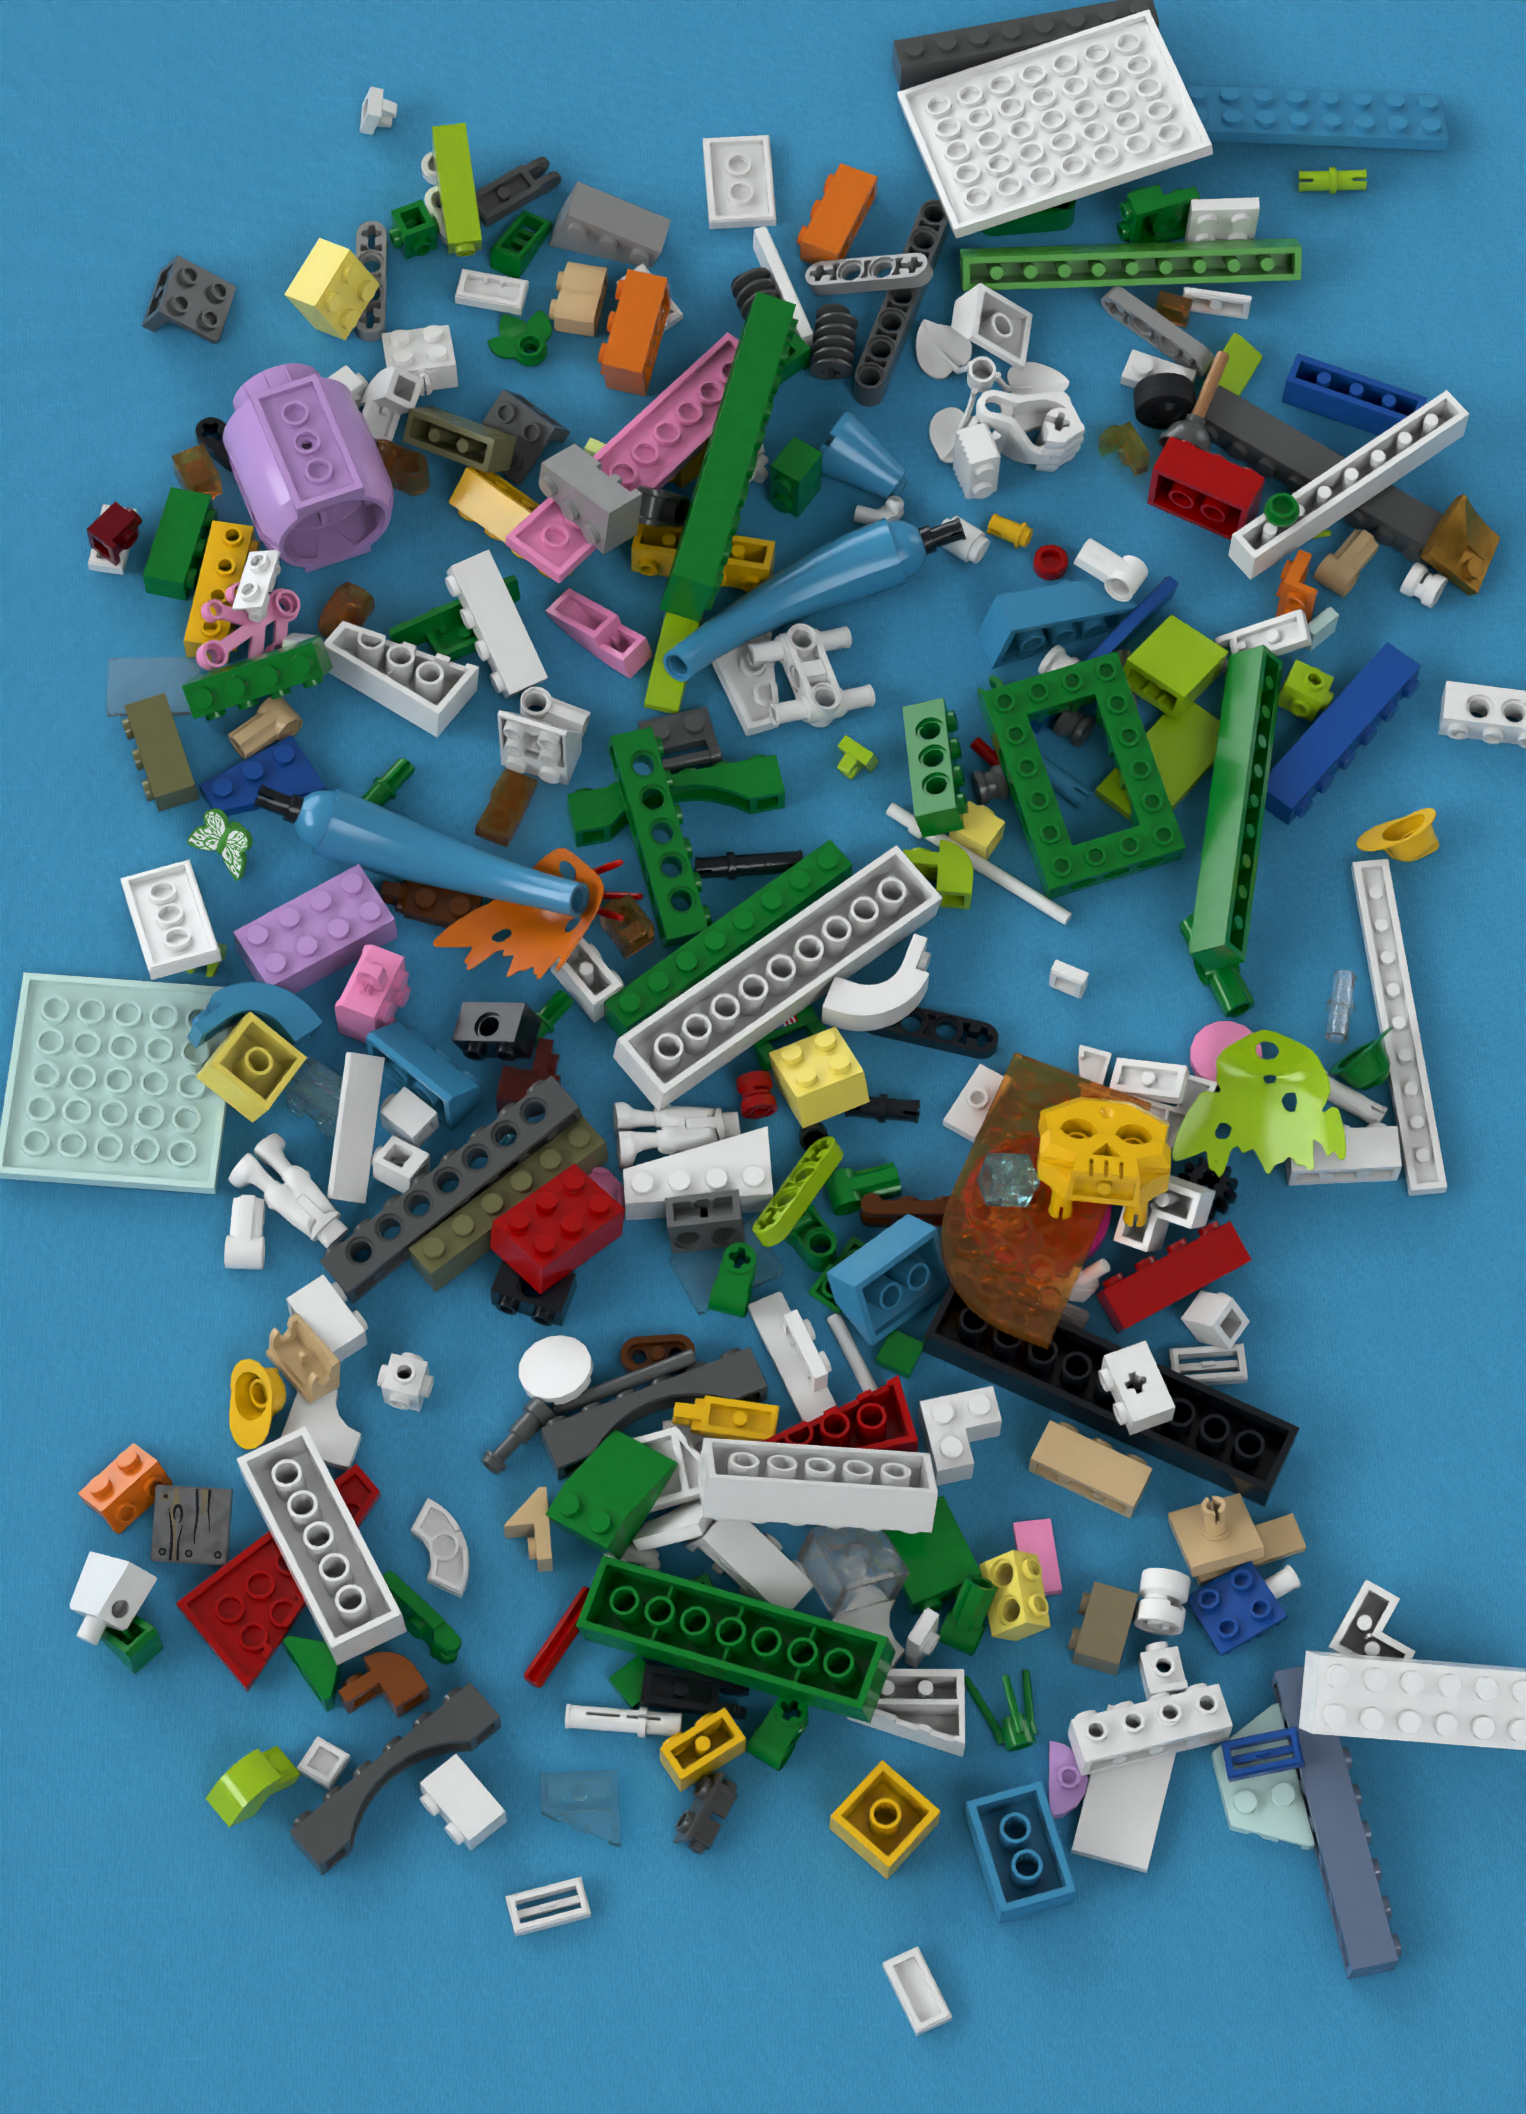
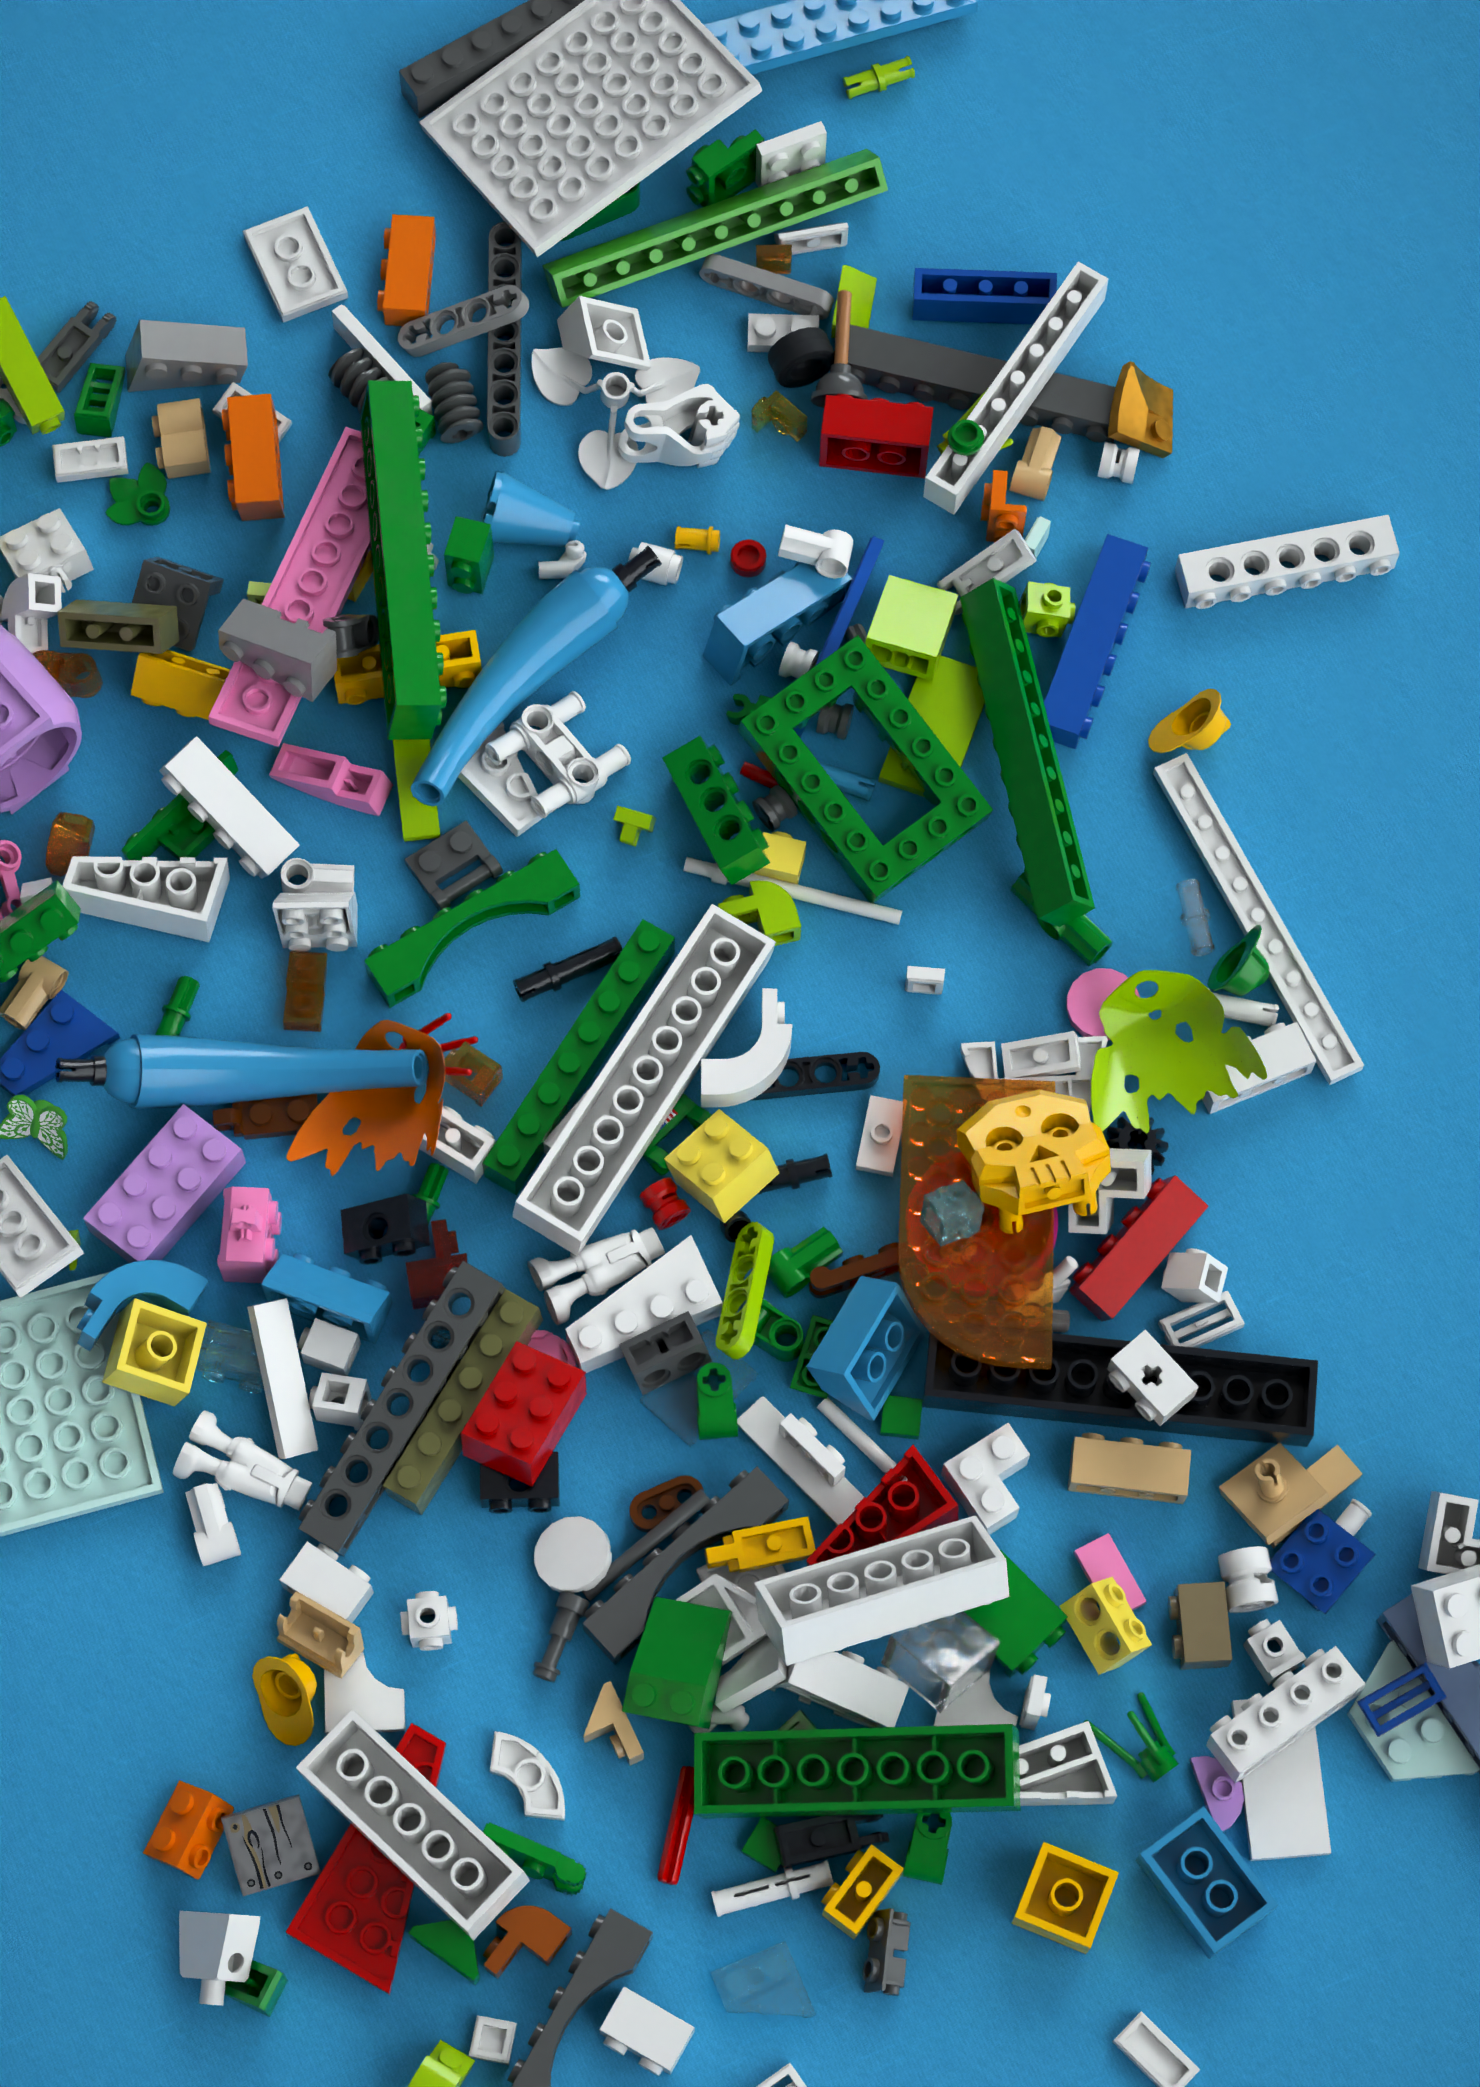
camera: 20 degrees left, 5 degrees up
(642, 746) = (451, 964): green brick -> none
(965, 1623) = (1068, 1668): green piece -> none
(976, 461) = (641, 480): white brick -> none

